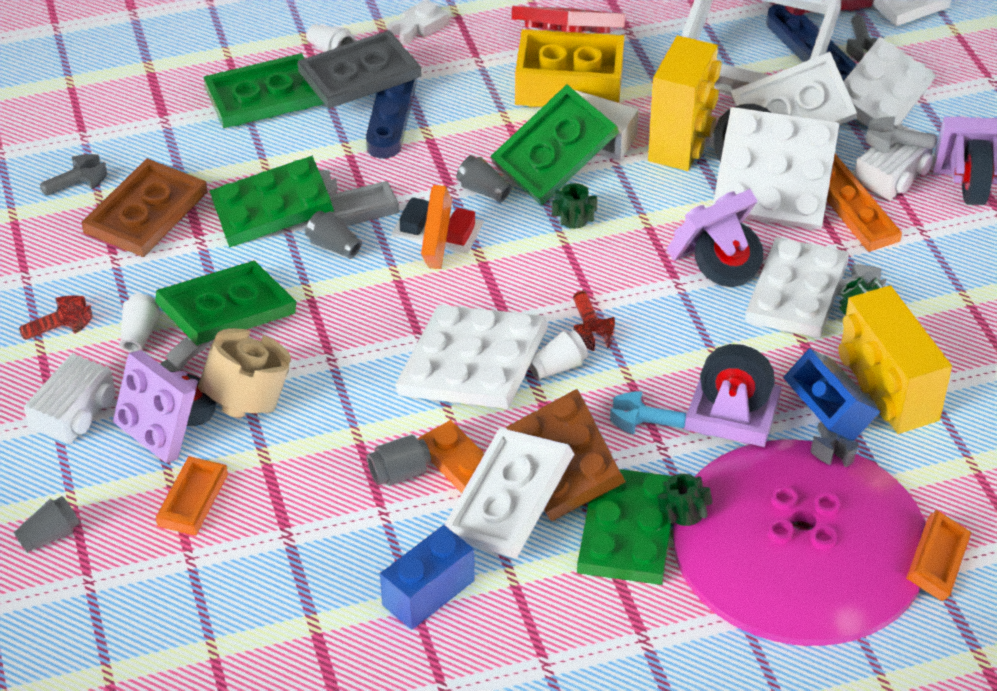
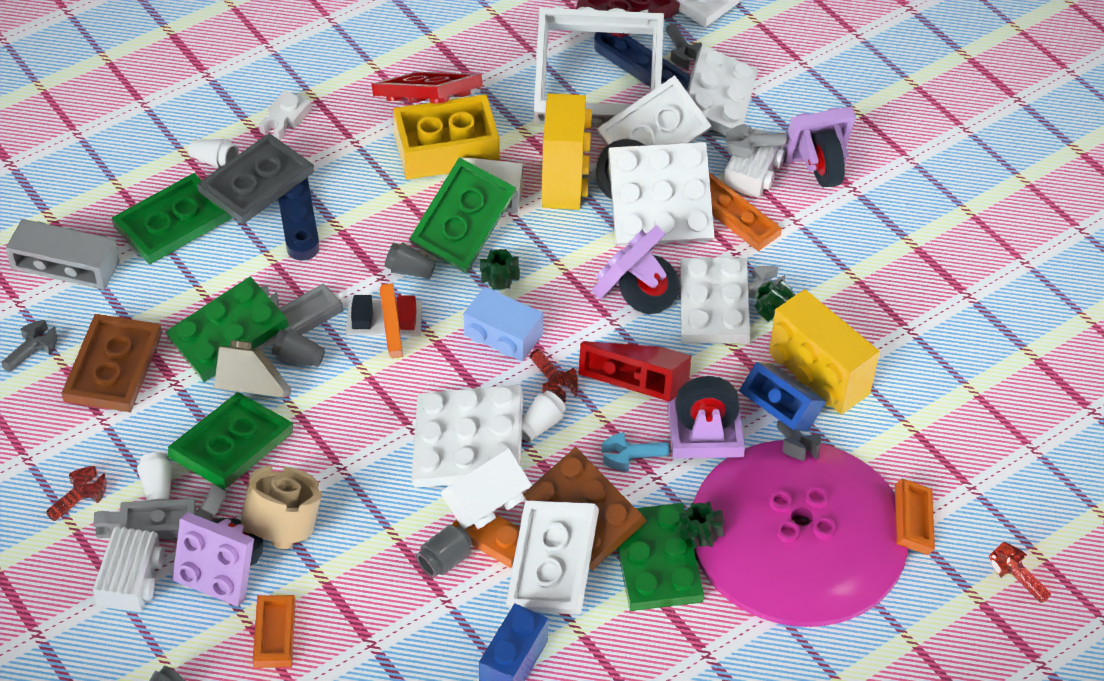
camera: 20 degrees left, 5 degrees up
(107, 351) = (155, 516): none -> light grey plate
(142, 99) = (63, 254): none -> light grey brick
(271, 241) = (248, 371): none -> slope
(461, 406) = (486, 489): none -> white brick
(556, 258) = (503, 323): none -> light blue brick
(677, 328) = (638, 368): none -> red slope

